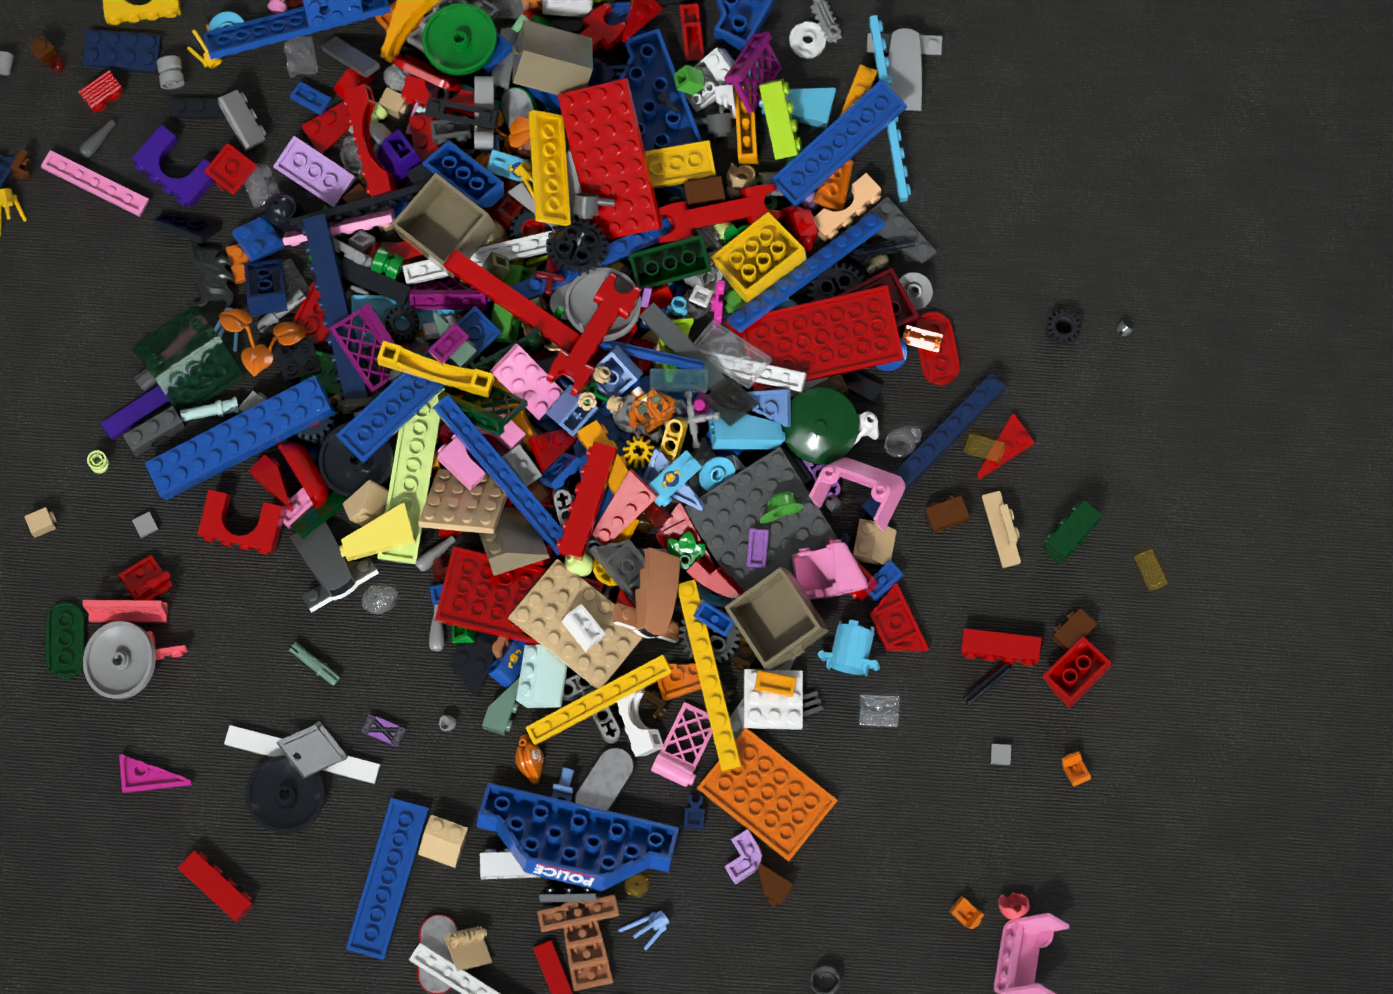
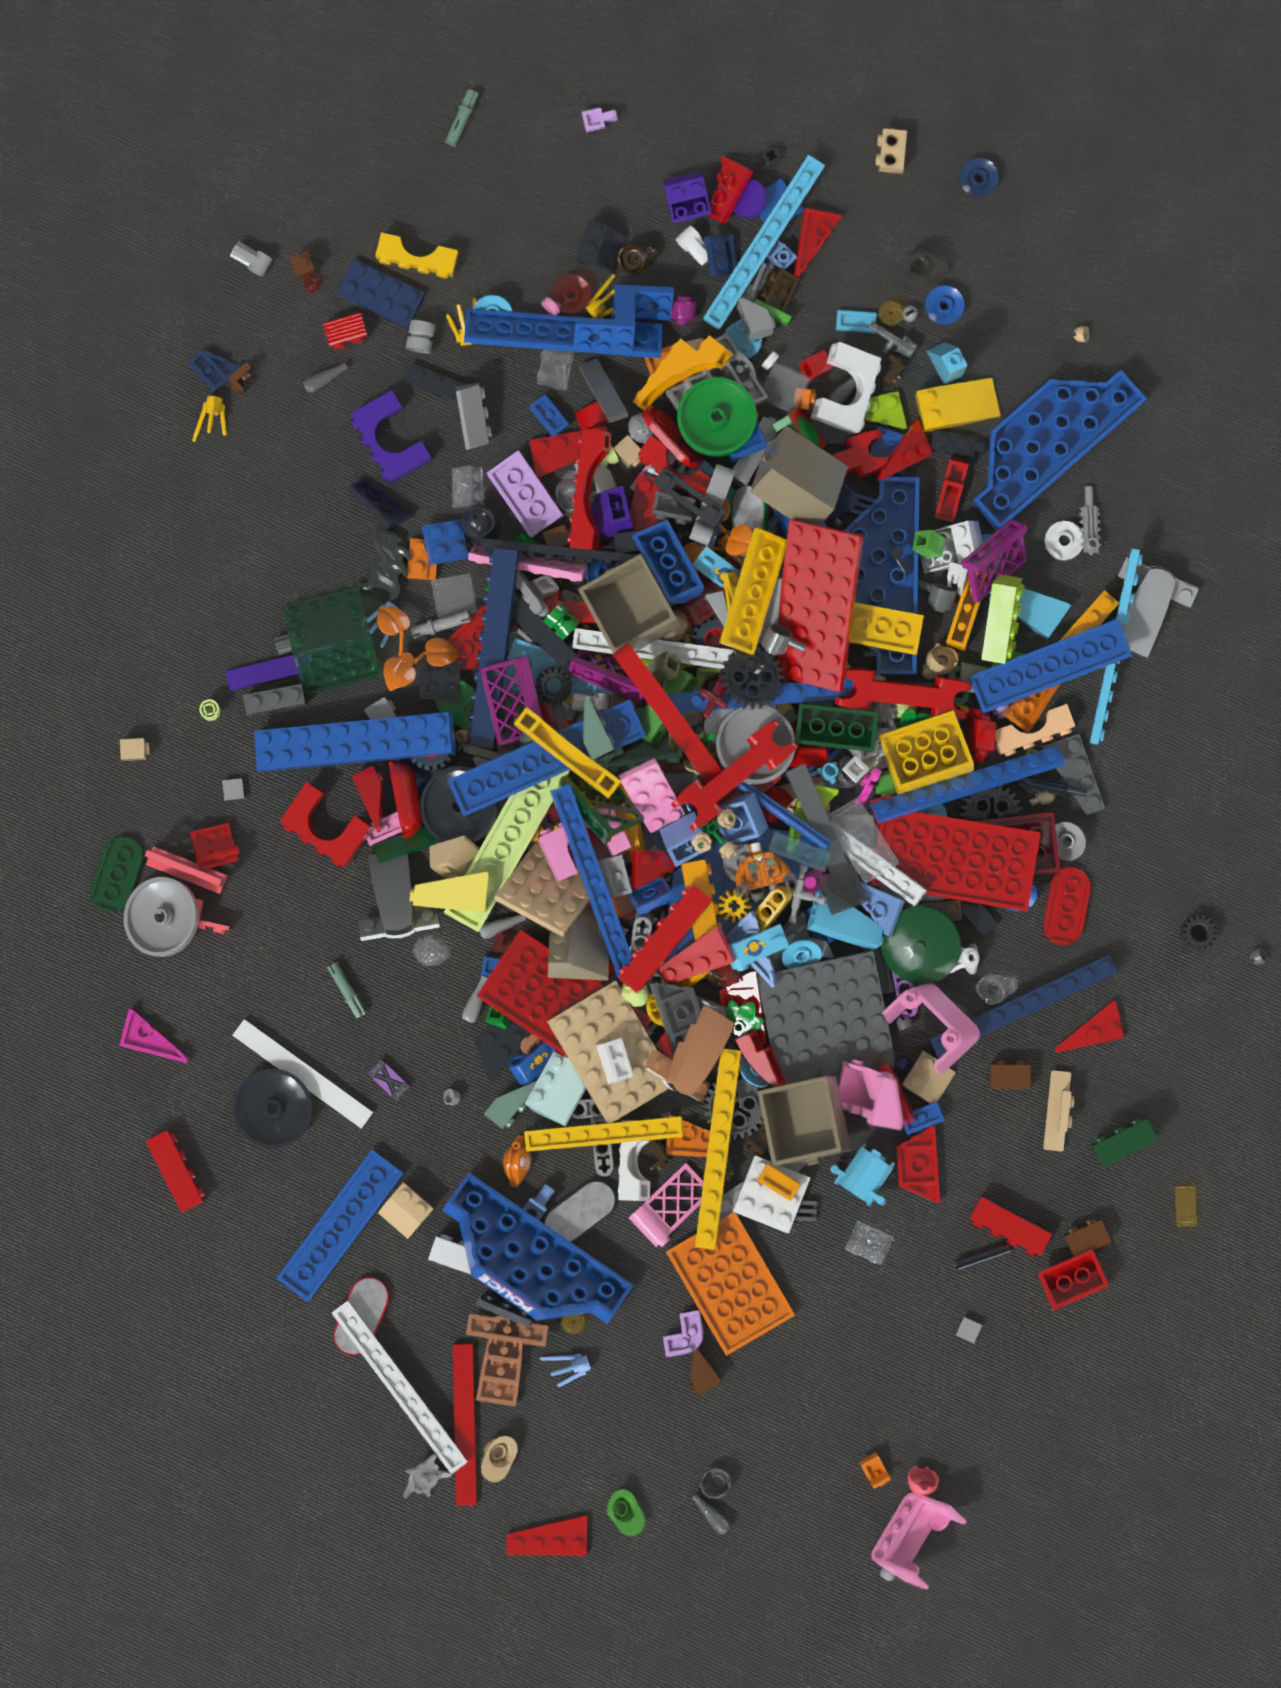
camera: 15 degrees right, 10 degrees up
(95, 183) = (306, 423): bright pink plate -> none
(218, 408) = (346, 700): light aqua pin -> none
(230, 169) = (443, 463): red bracket -> none
(265, 287) = (434, 597): dark blue slope -> none
(315, 749) = (316, 1073): container -> none
(448, 344) = (588, 734): magenta plate -> none
(468, 948) = (392, 1322): tan hinge -> none
(646, 296) = (800, 753): medium lavender tile -> none
(694, 816) = (652, 1277): dark blue plate -> none
(704, 192) = (898, 666): reddish brown brick -> none
(713, 617) = (744, 1095): blue slope -> none
(757, 548) = (812, 1042): medium lavender tile -> none
(781, 505) = (851, 1009): bright green piece -> none
(922, 338) = (1055, 892): hinge -> none
(985, 448) = (1073, 1025): clear yellow tile -> none
(1075, 769) = (1034, 1372): orange bracket -> none

